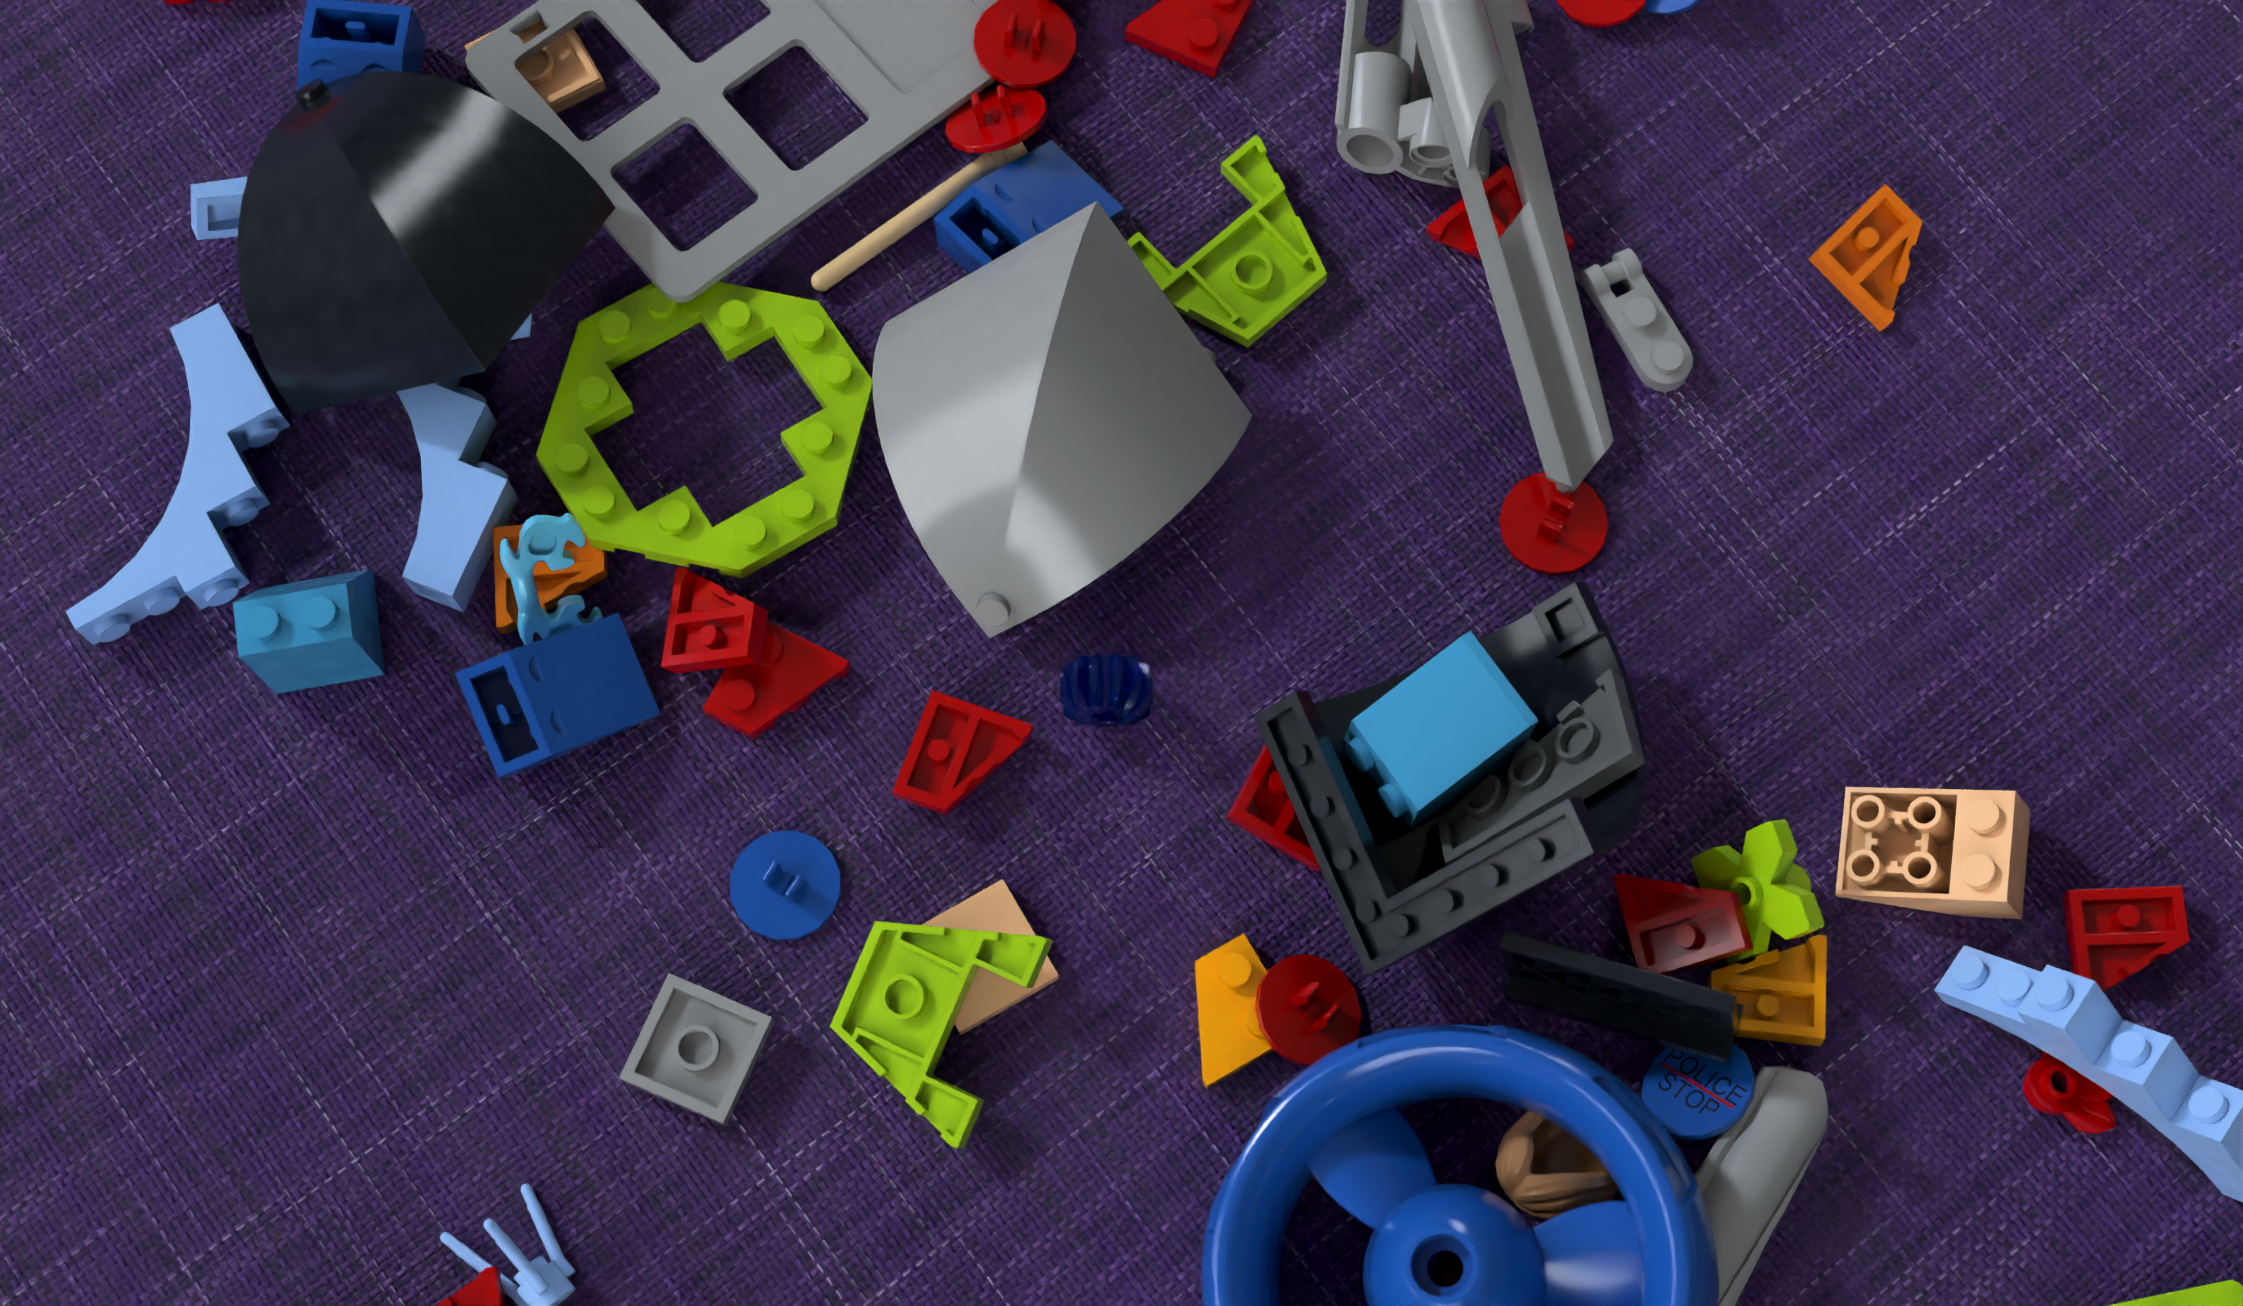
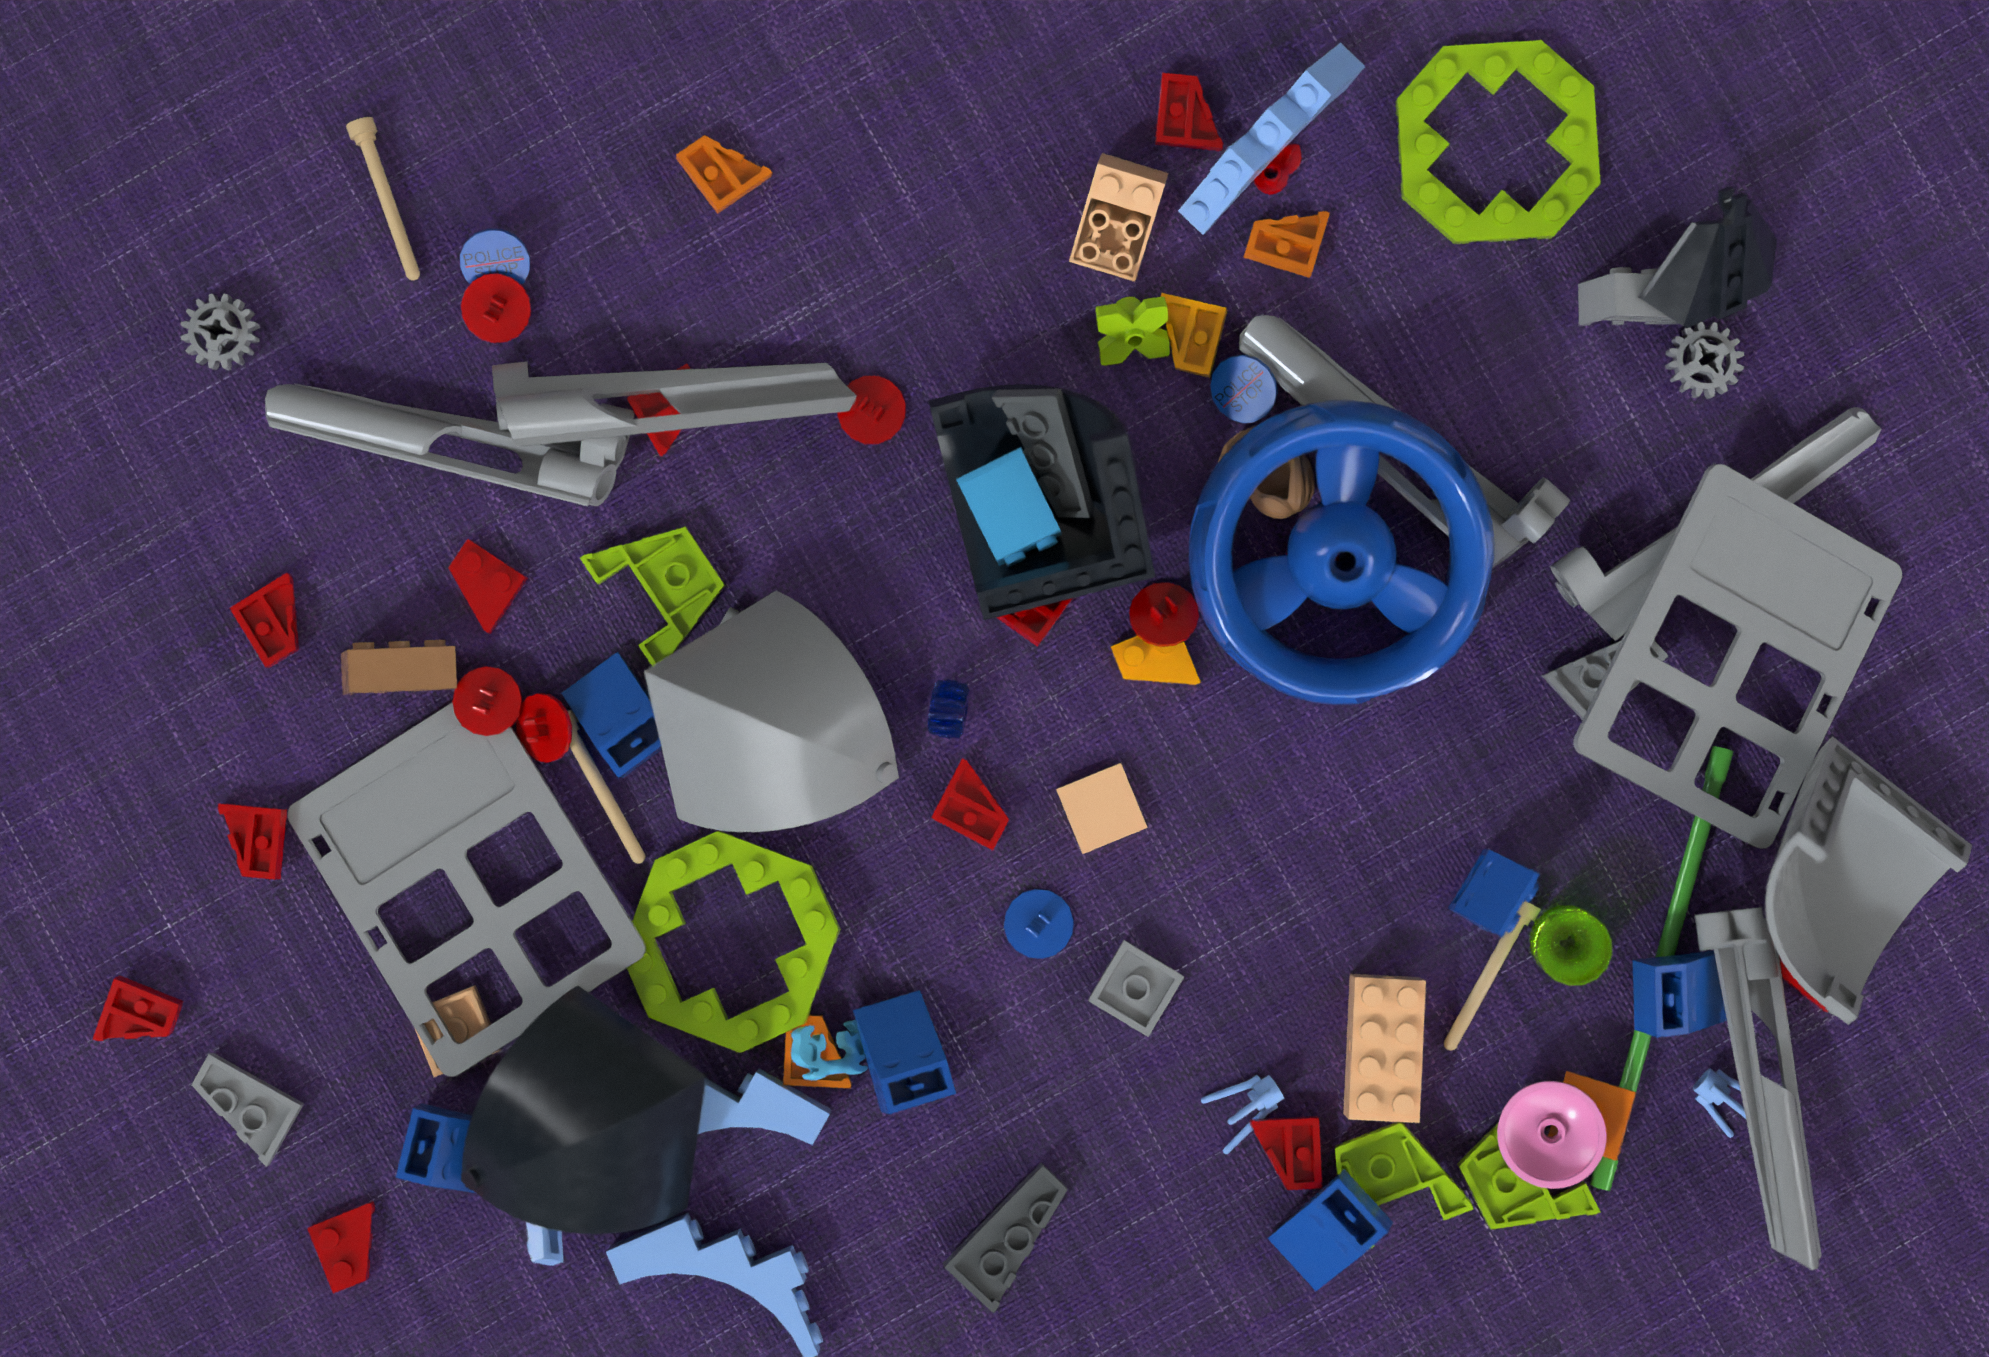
camera: 80 degrees left, 15 degrees up
(269, 892) = (997, 1247): none -> dark grey wing
(311, 632) = (833, 1204): dark azure slope -> none
(710, 627) = (869, 951): red wing -> none
(757, 694) = (904, 918): red wing -> none
(908, 1000) = (1125, 856): lime wing -> none
(1621, 998) = (1186, 425): black fence -> none
(1639, 322) = (744, 330): light grey plate -> none
(1680, 924) = (1144, 381): red wing -> none
(1950, 1129) = (1288, 242): none -> orange wing

